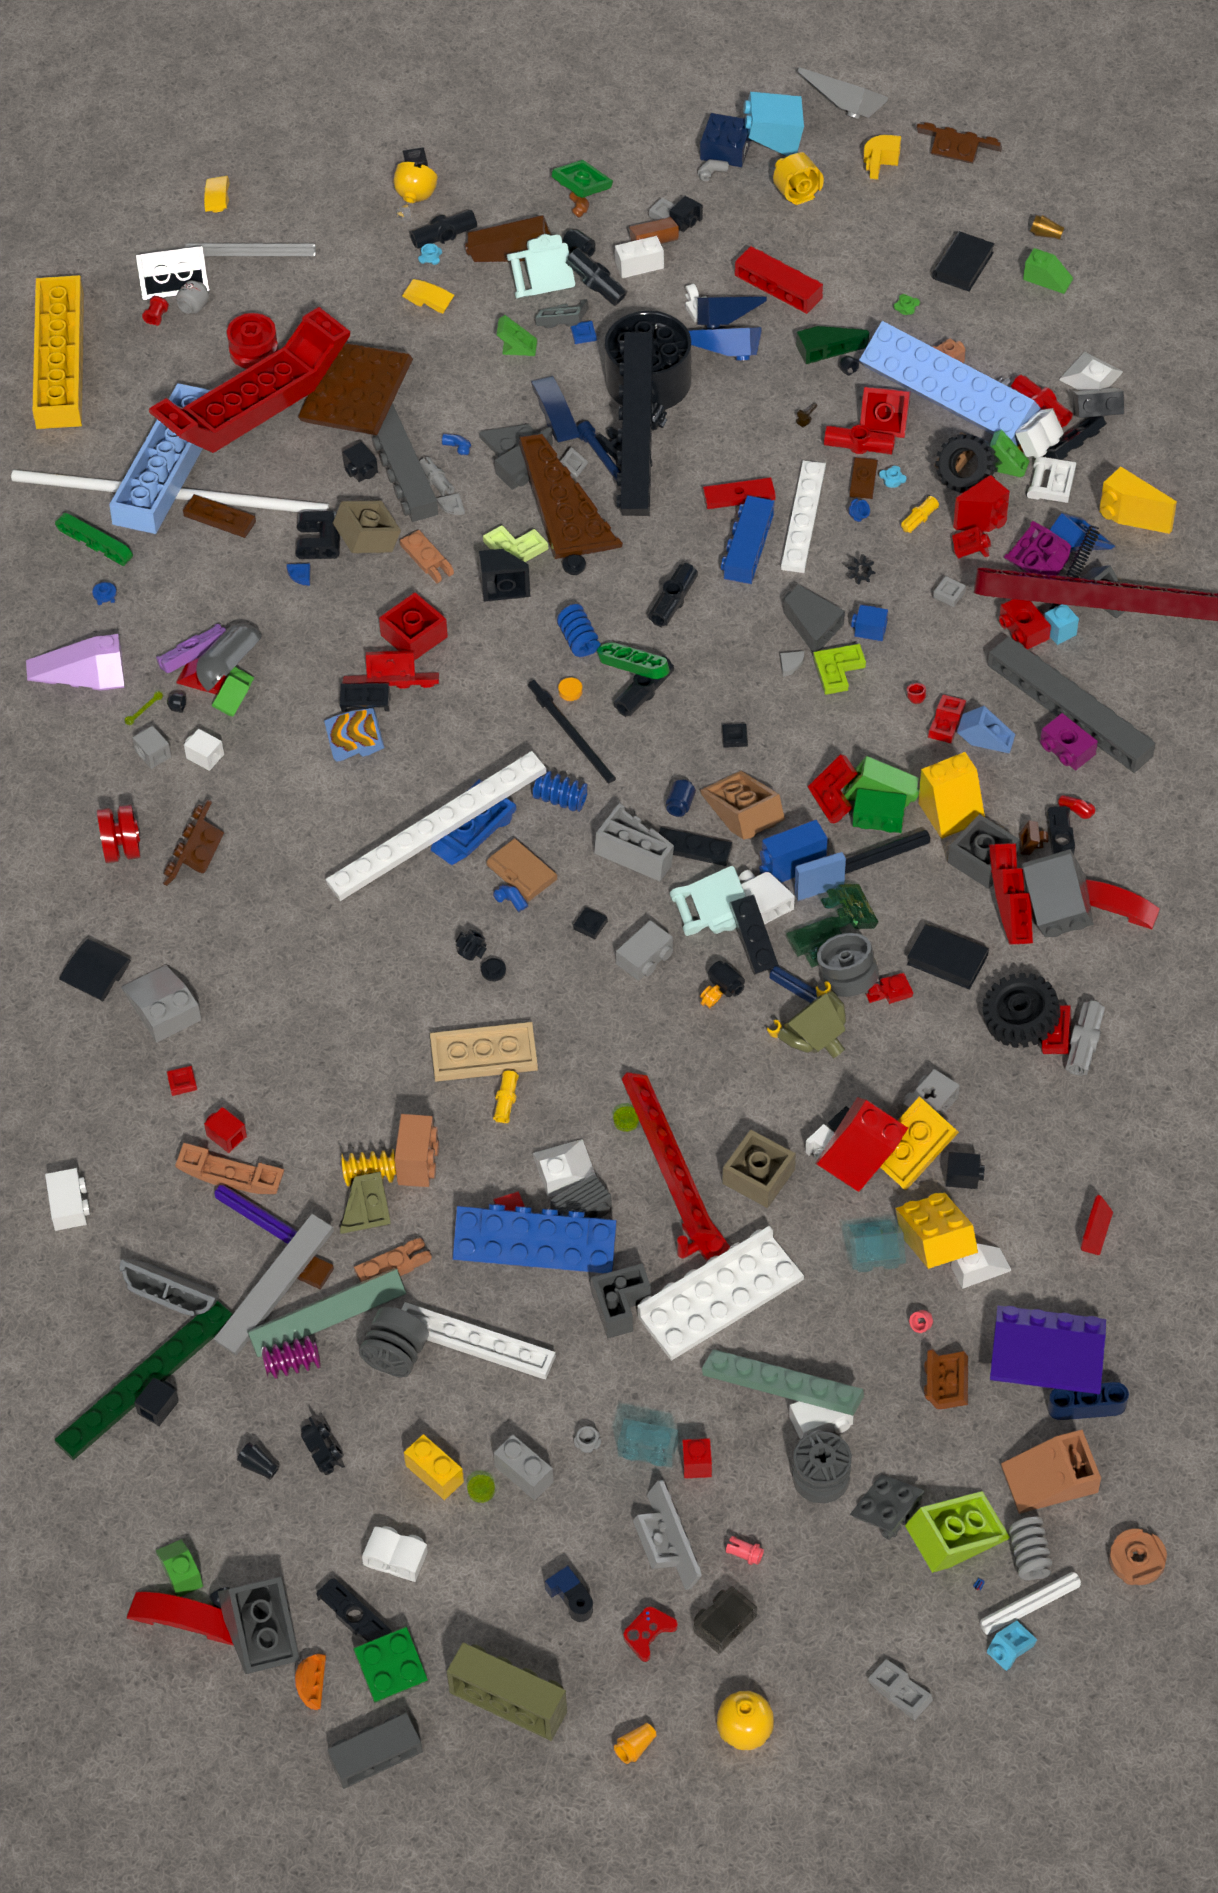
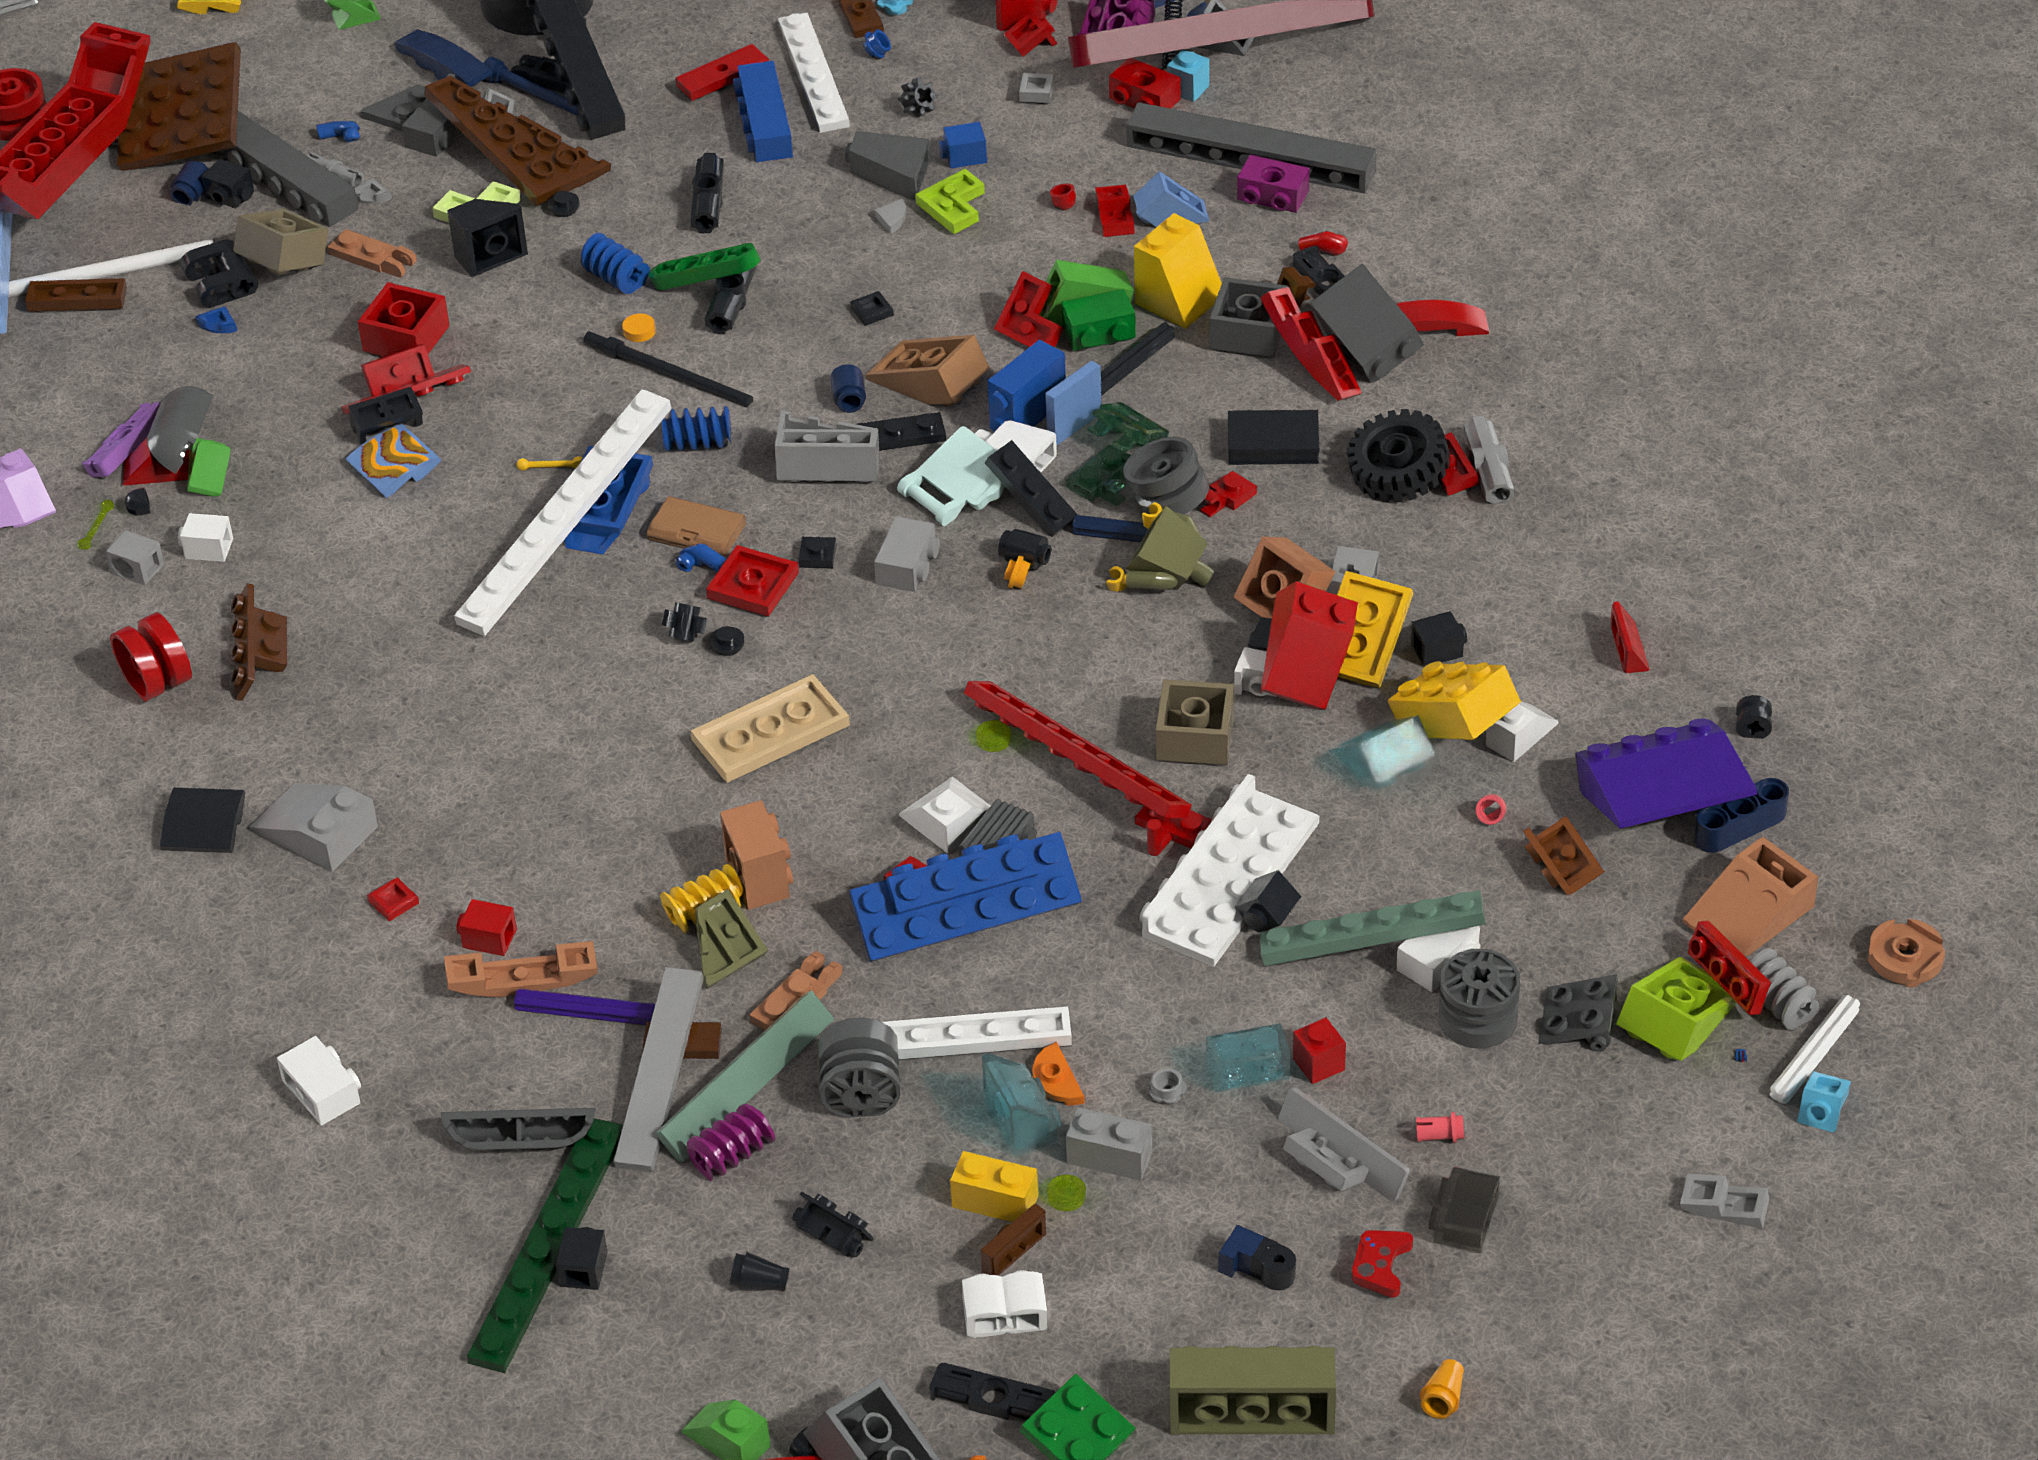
camera: 25 degrees left, 10 degrees down
(332, 453) = (188, 183): none -> dark blue brick
(425, 1511) = (1013, 1241): none -> reddish brown plate
(437, 771) = (523, 464): none -> yellow hinge
(482, 1412) = (1018, 1105): none -> clear light blue slope
(505, 1097) = (829, 764): yellow pin -> none
(520, 1399) = (1057, 1076): none -> orange plate
(534, 929) = (752, 580): none -> red plate
(615, 1295) = (1109, 917): dark grey brick -> none
(727, 1330) = (1267, 901): none -> black brick
(745, 1720) = (1562, 1307): yellow cylinder -> none
(879, 1080) = (1275, 566): none -> nougat brick
(920, 514) = (951, 26): yellow axle -> none
(1003, 1517) = (1728, 967): none -> red tile
(1144, 1326) = (1754, 717): none -> black wheel

